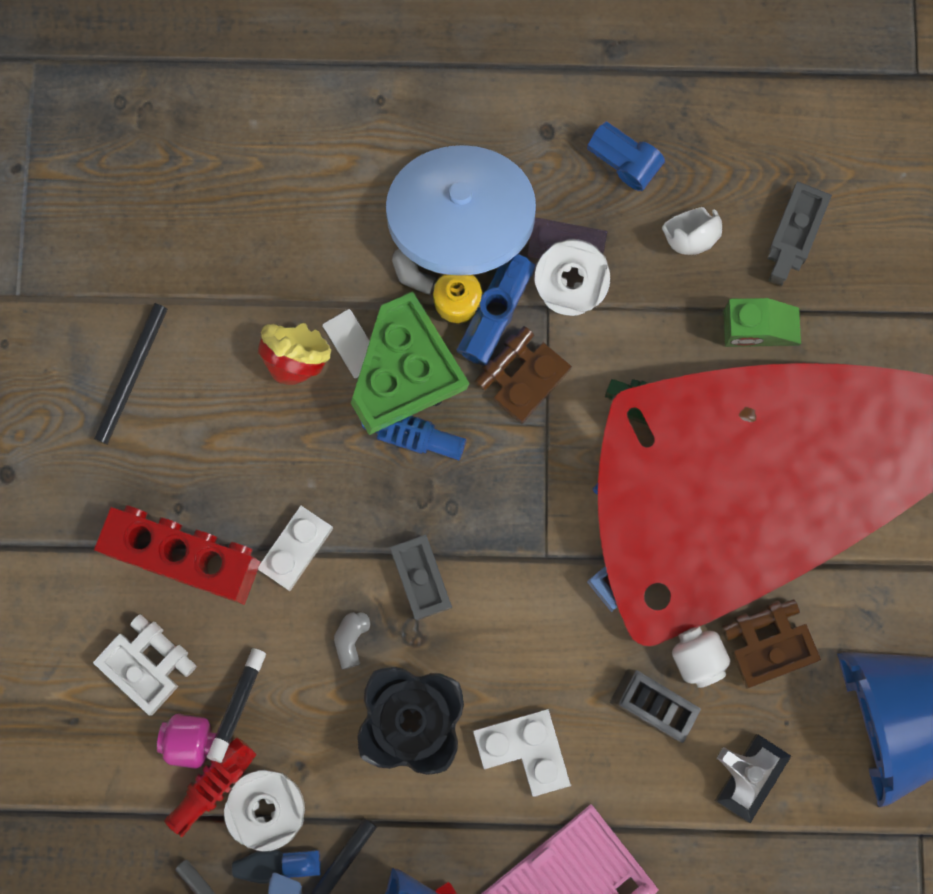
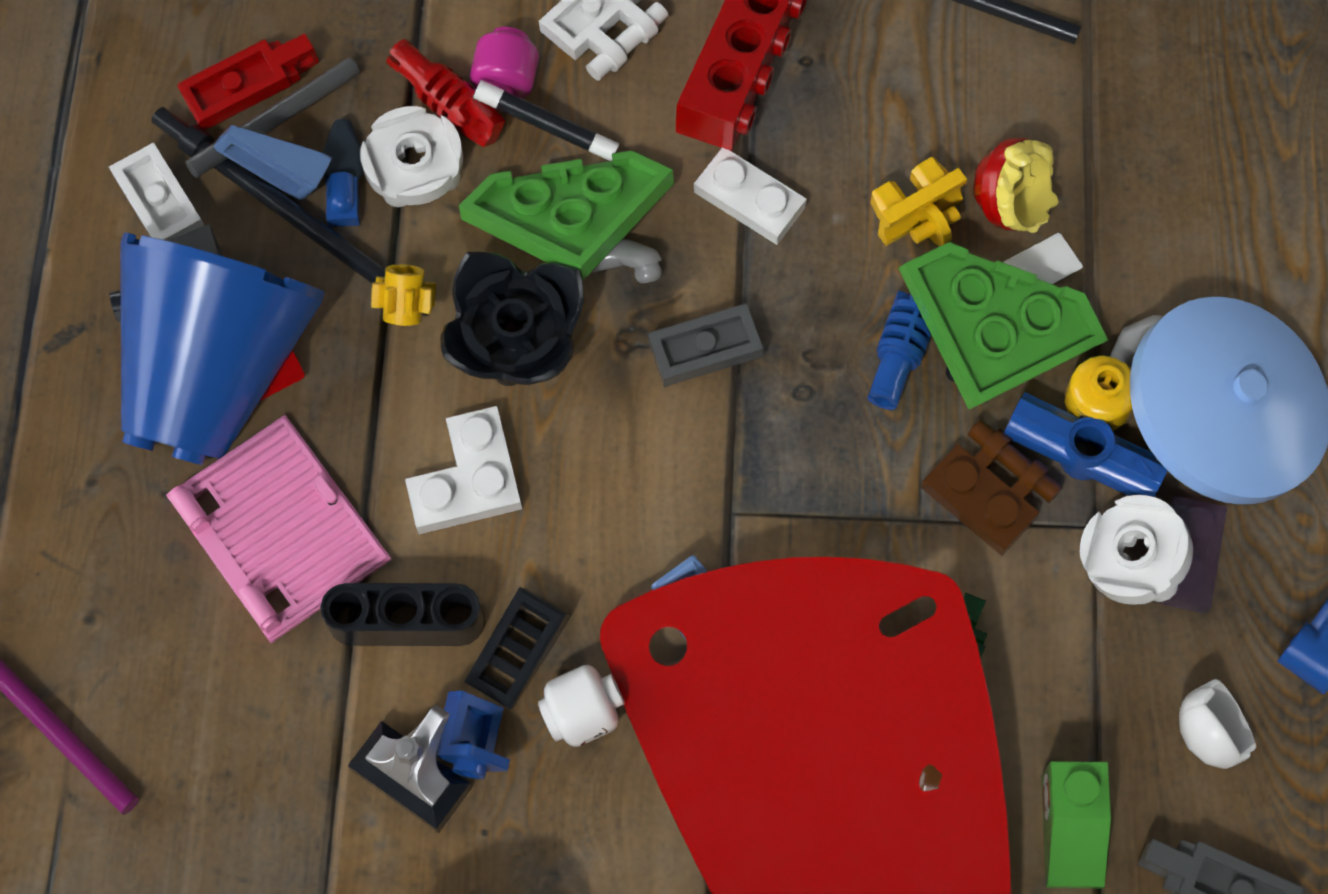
camera: 90 degrees right, 10 degrees down
(294, 409) = (924, 212): none -> yellow hips
(311, 684) = (569, 209): none -> bright green plate
(387, 807) = (403, 295): none -> yellow gear
(648, 808) = (382, 599): none -> black beam
(731, 734) = (471, 736): none -> blue bracket
(775, 655) = (580, 815): reddish brown plate -> none

